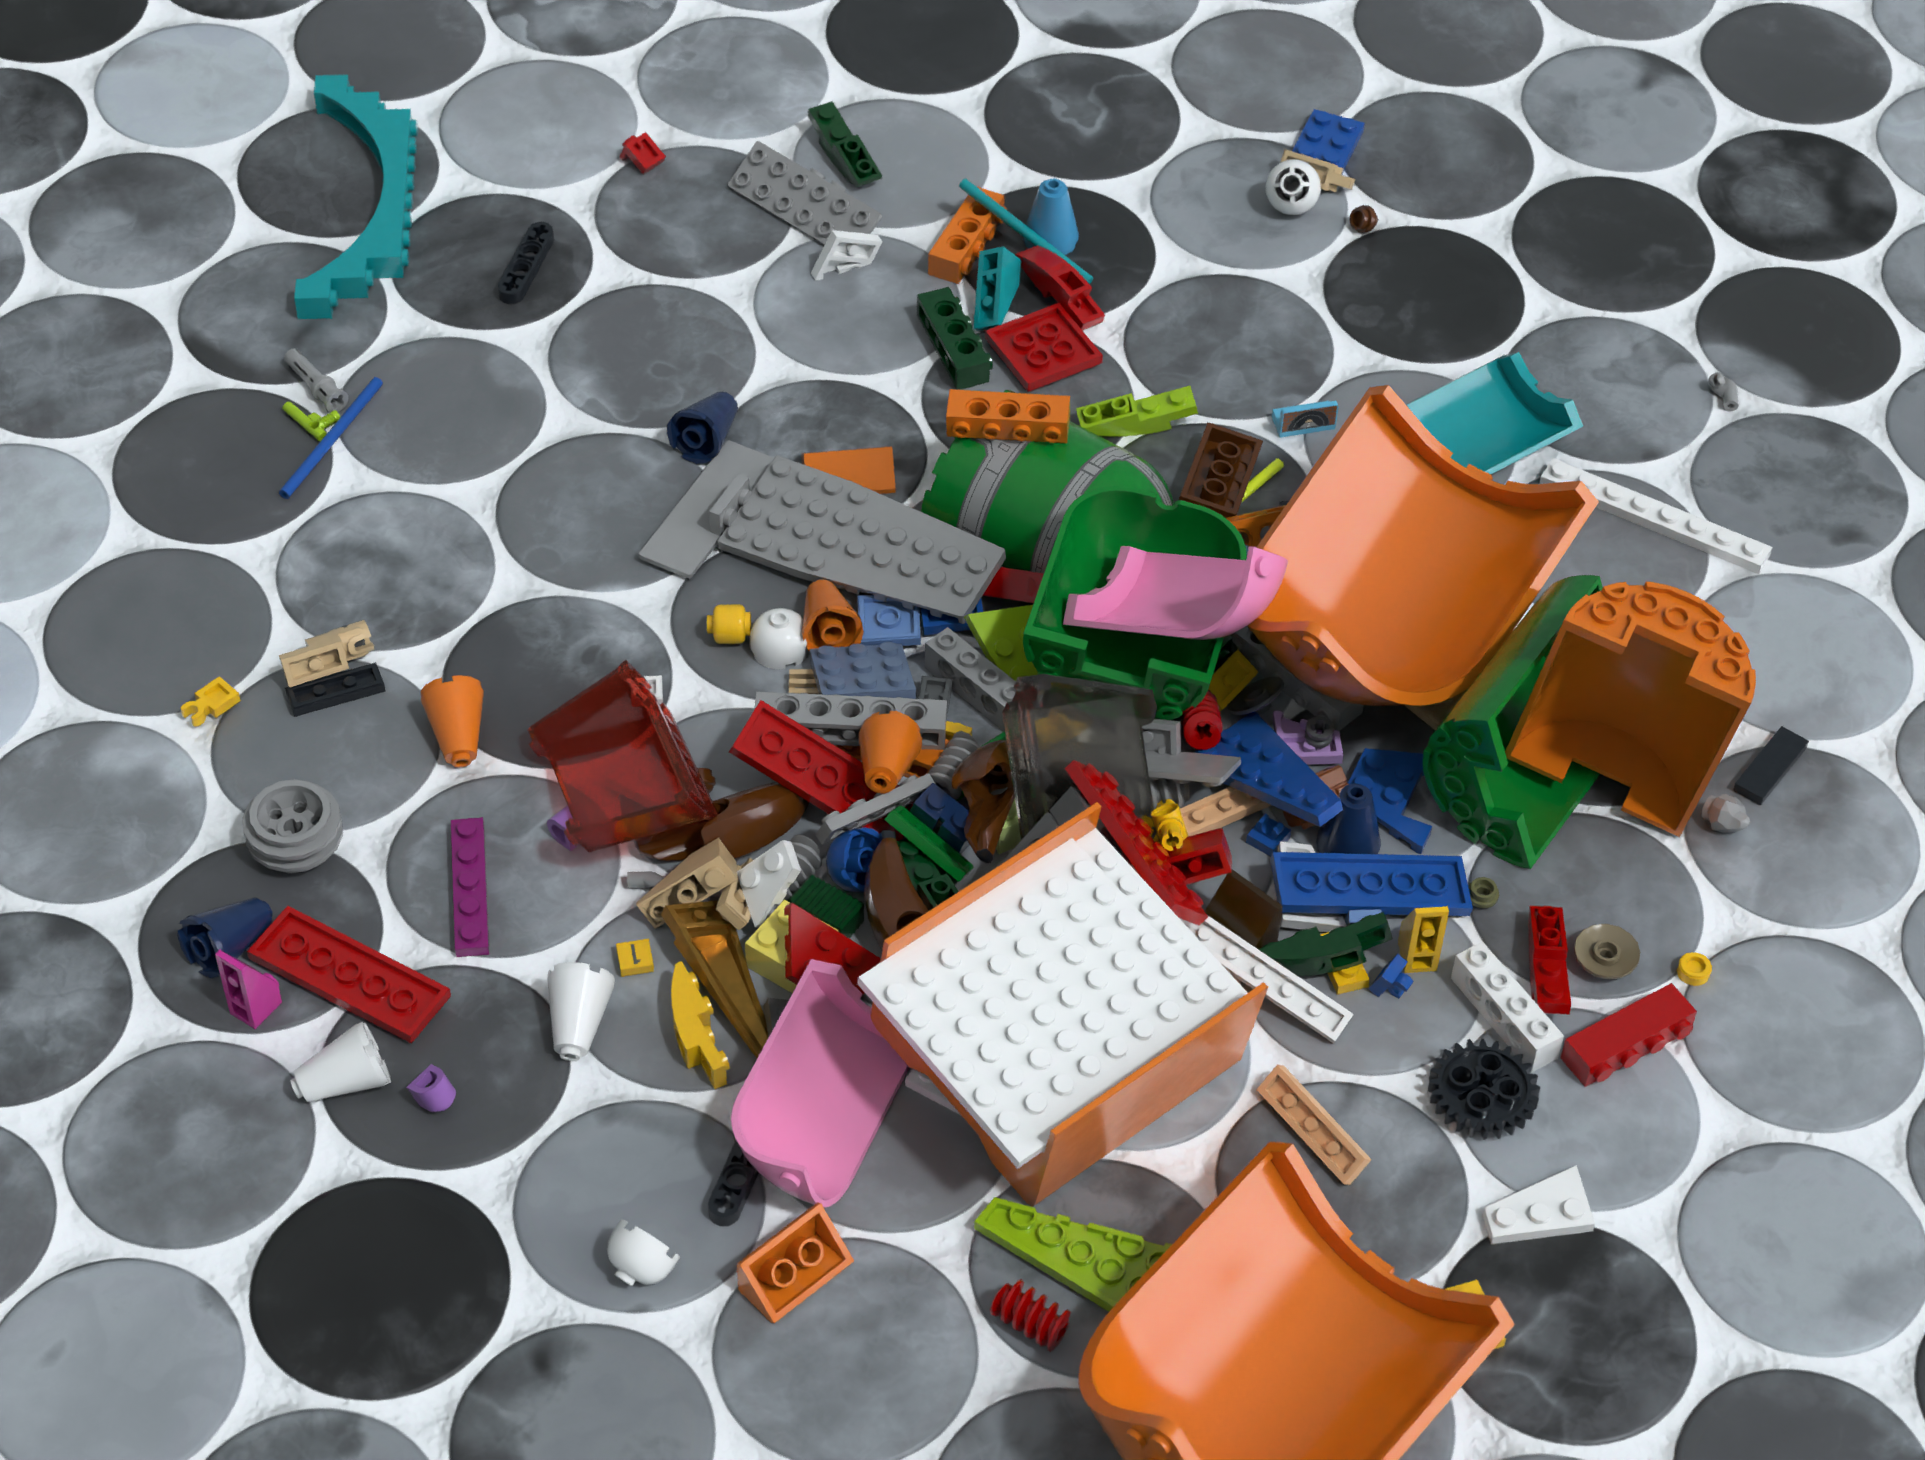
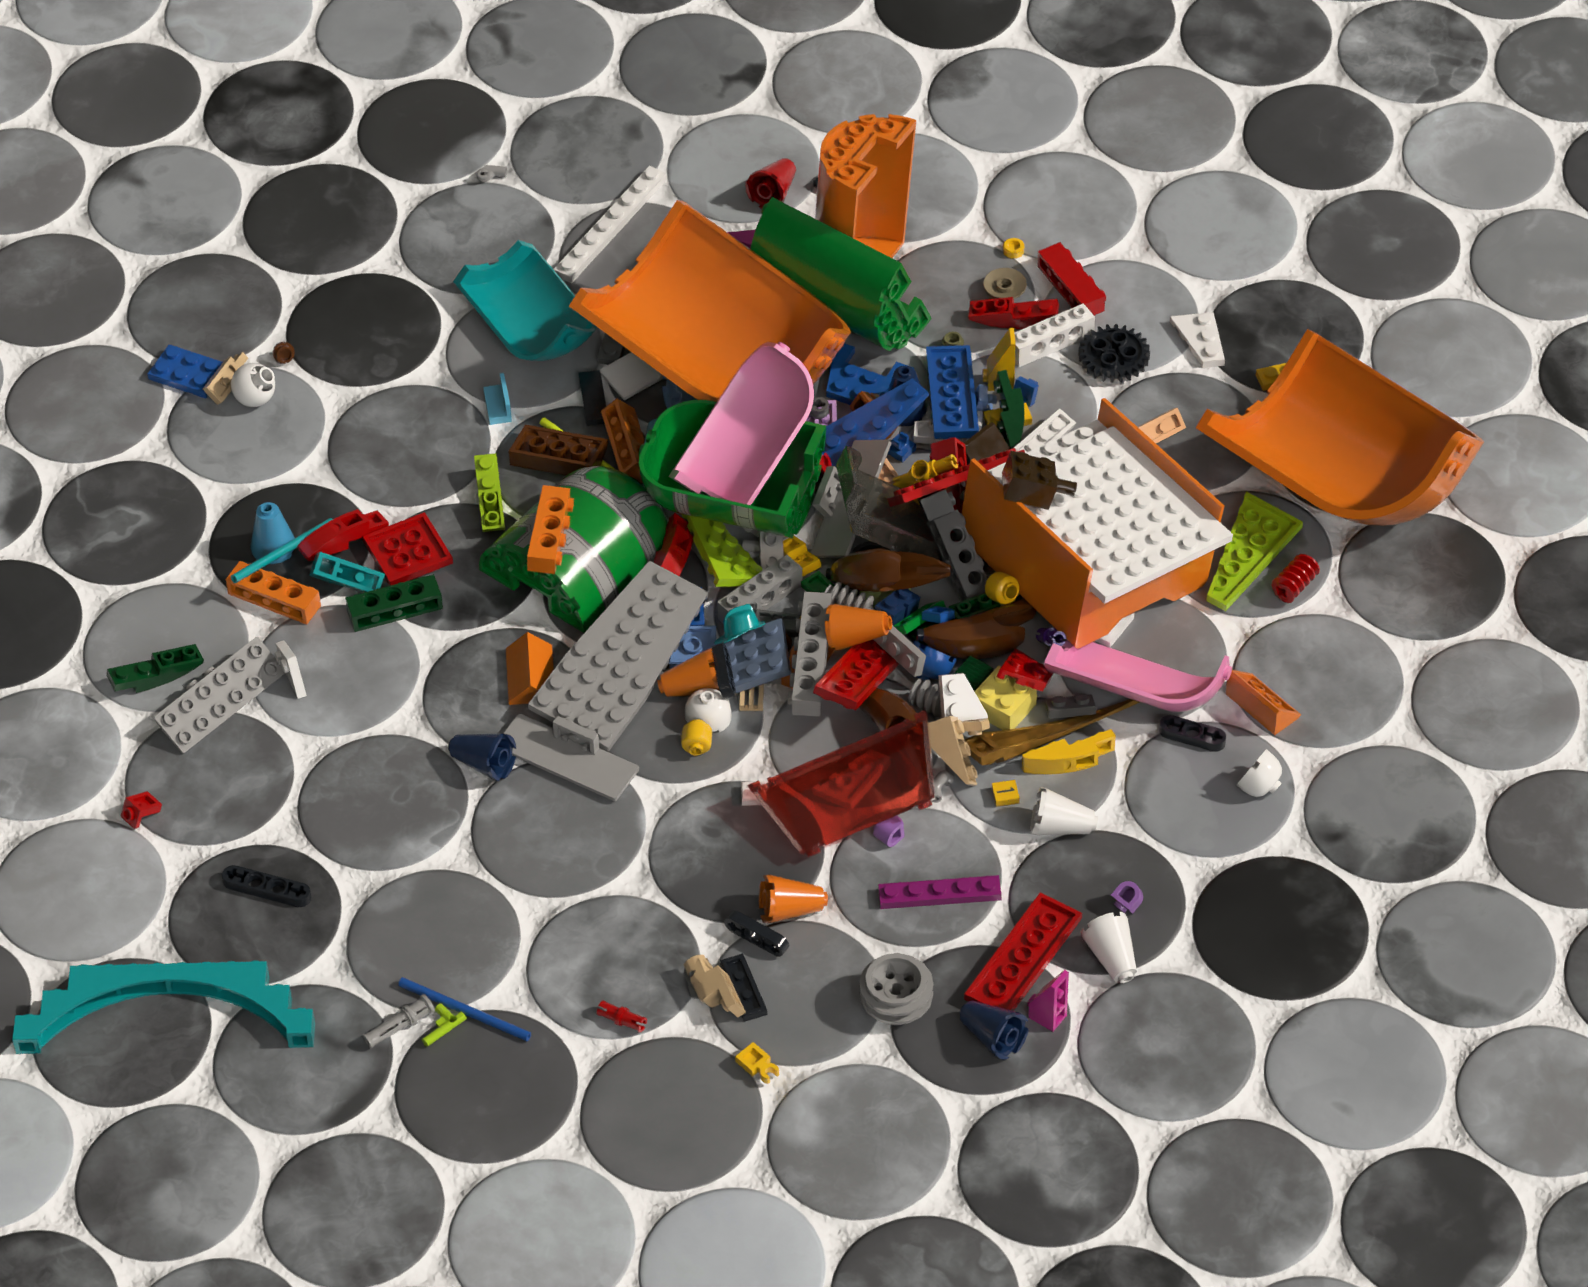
camera: 85 degrees left, 0 degrees up
(299, 573) = (621, 1016): none -> red pin
(408, 696) = (756, 933): none -> black beam
(848, 642) = (724, 670): none -> black beam
(906, 649) = (738, 622): none -> teal piece
(924, 857) = (938, 614): none -> blue tile
(1055, 871) = (1033, 480): none -> dark brown brick
(1774, 677) = (771, 182): none -> red cone

